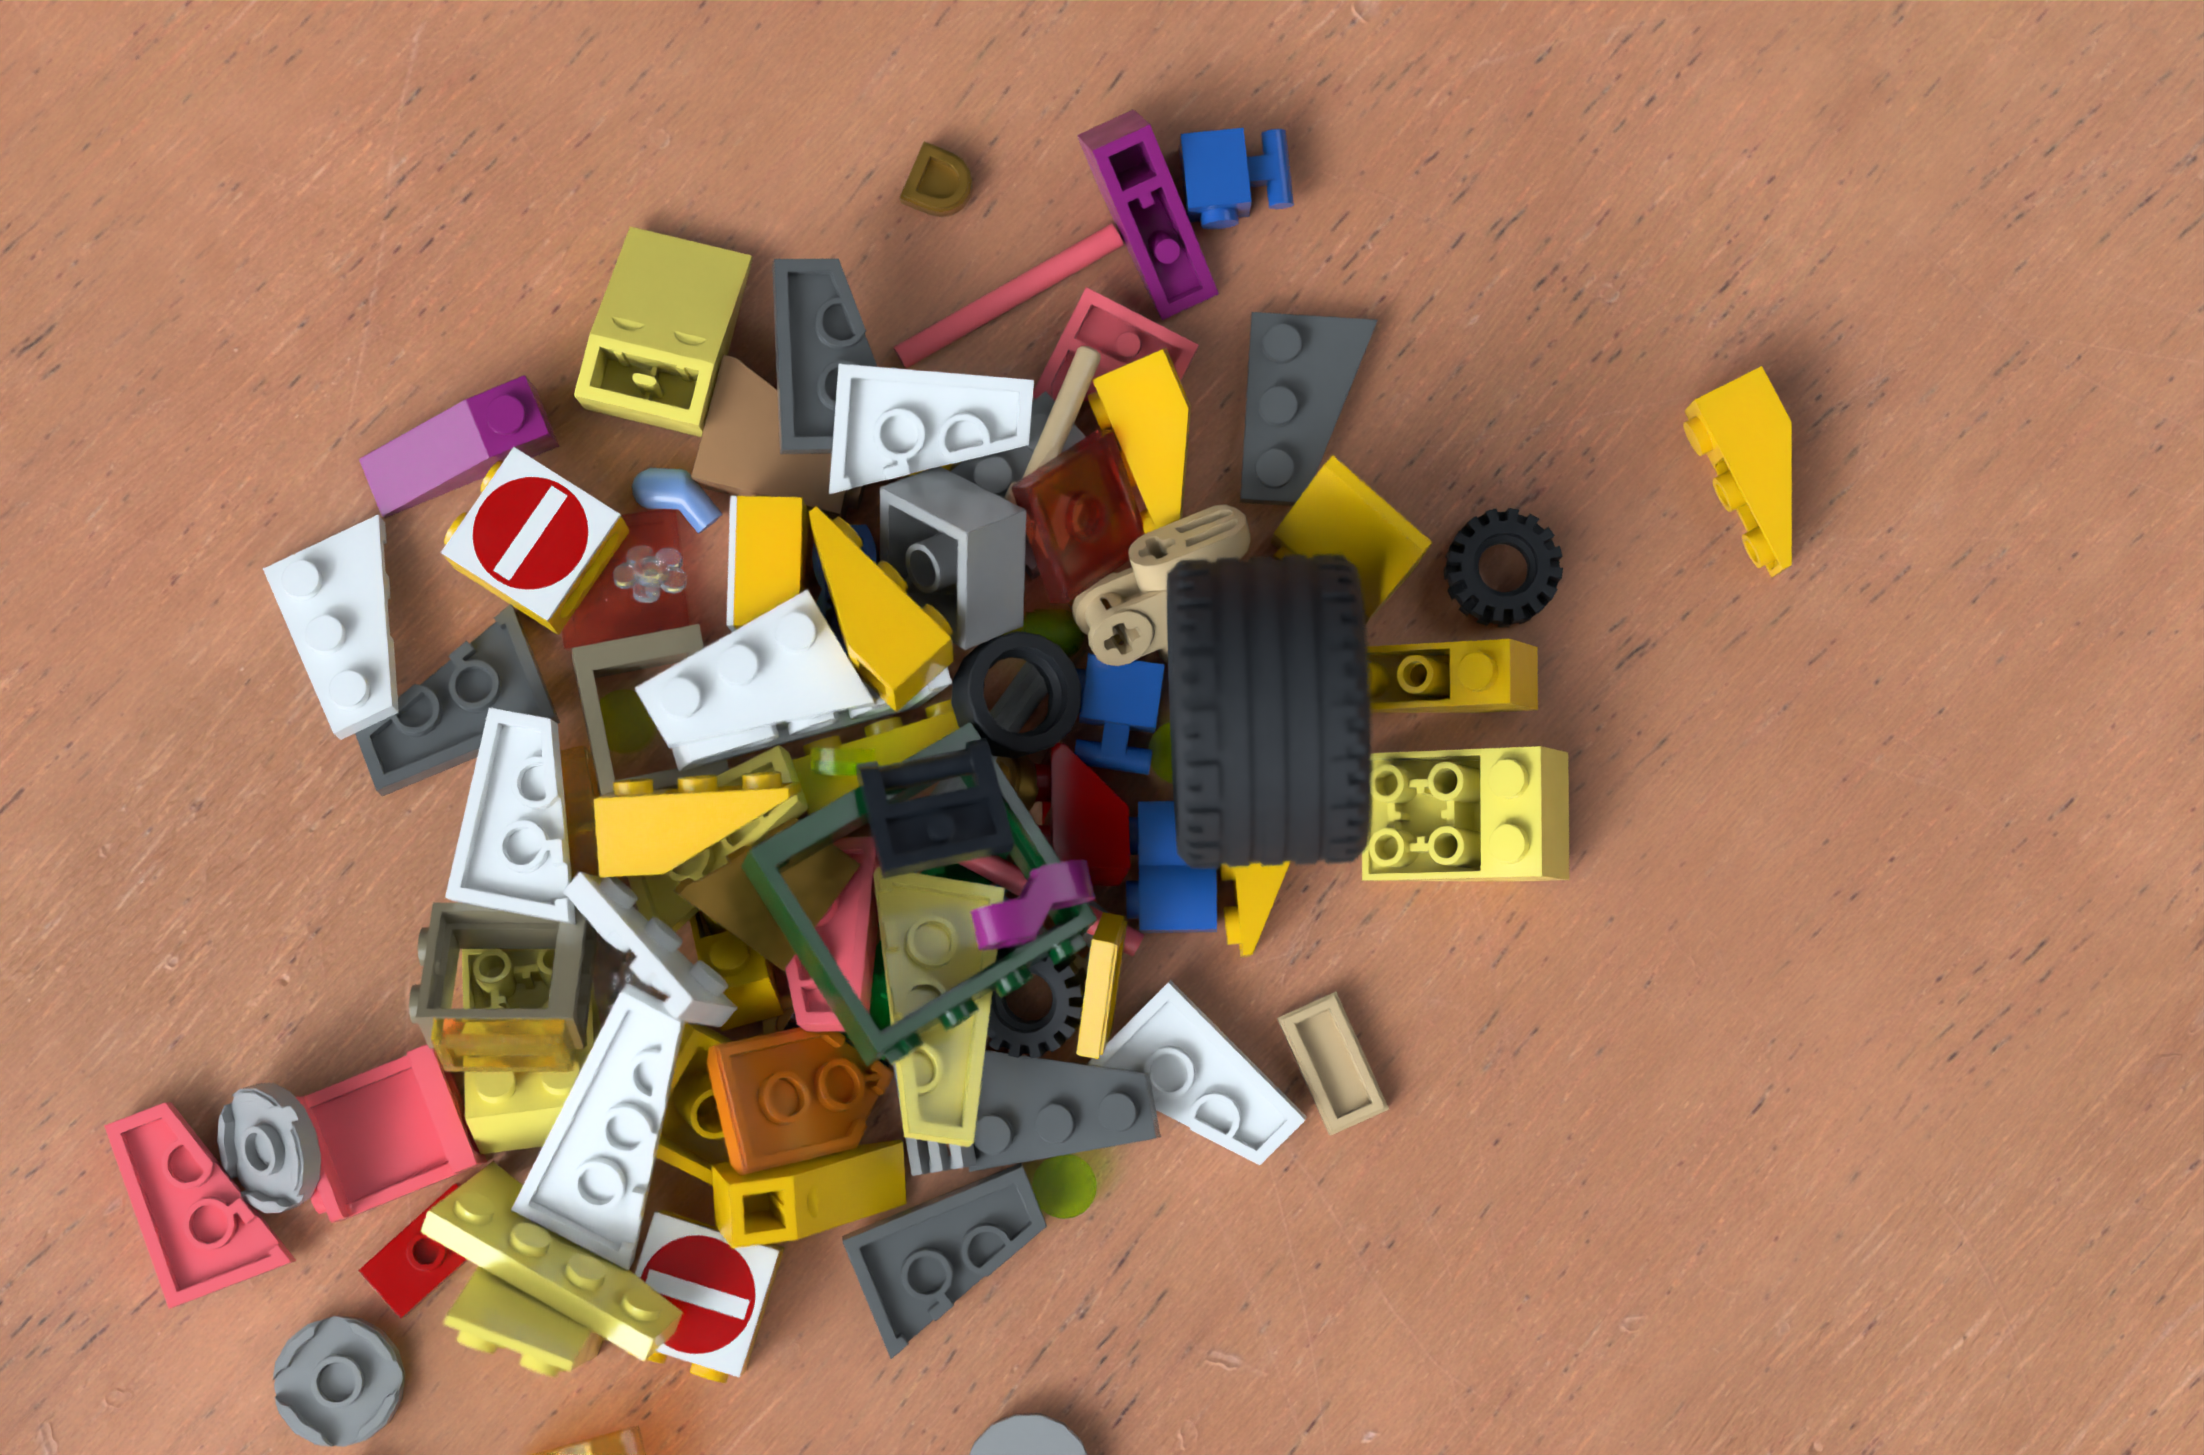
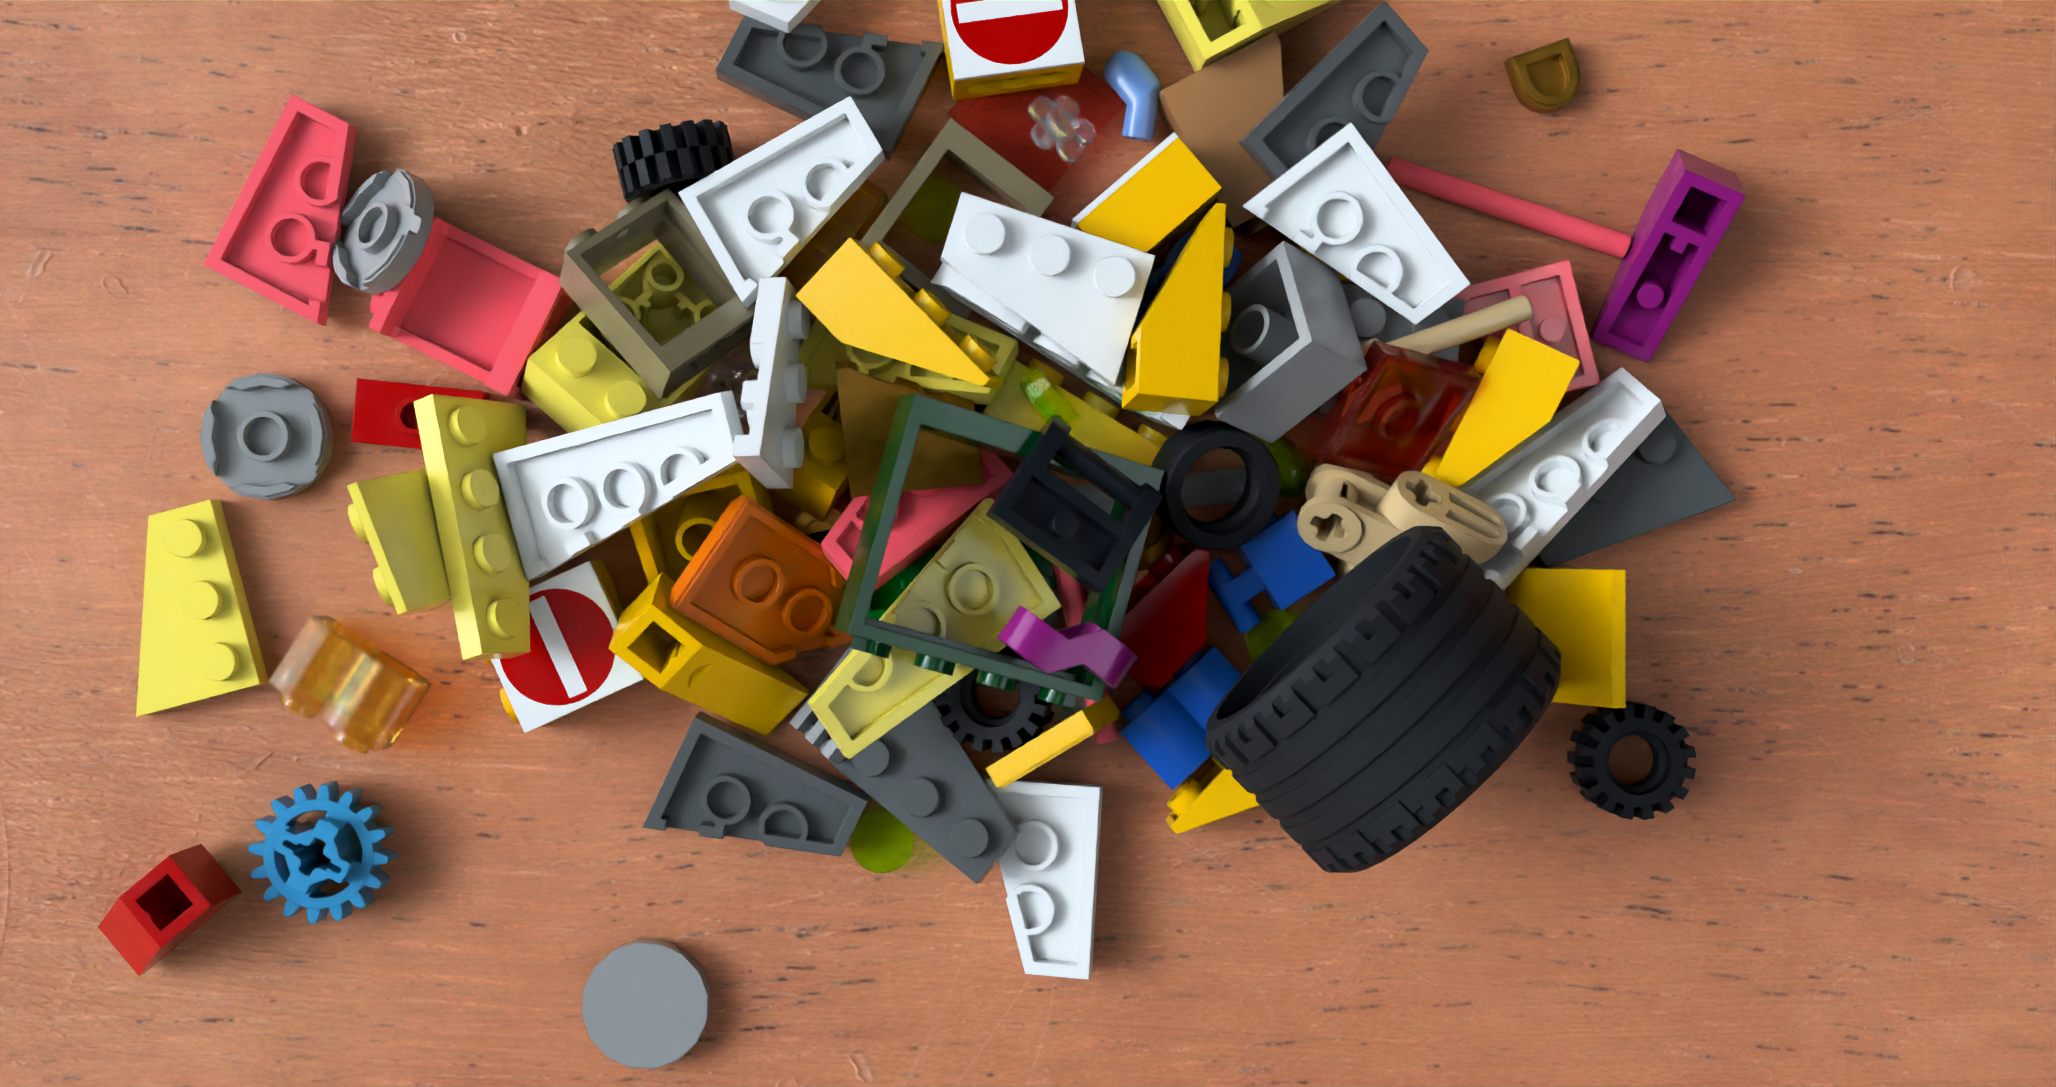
camera: 50 degrees right, 5 degrees up
(413, 881) = (671, 157): none -> black tyre
(503, 1045) = (606, 337): clear yellow tile -> none
(1220, 175) = (1745, 284): blue brick -> none
(1234, 431) = (1562, 467): none -> white wing
(1332, 1063) = (1147, 957): tan tile -> none
(1454, 677) = (1534, 814): yellow slope -> none
(1469, 815) = (1433, 914): light yellow slope -> none
(1751, 450) = (1885, 869): yellow slope -> none

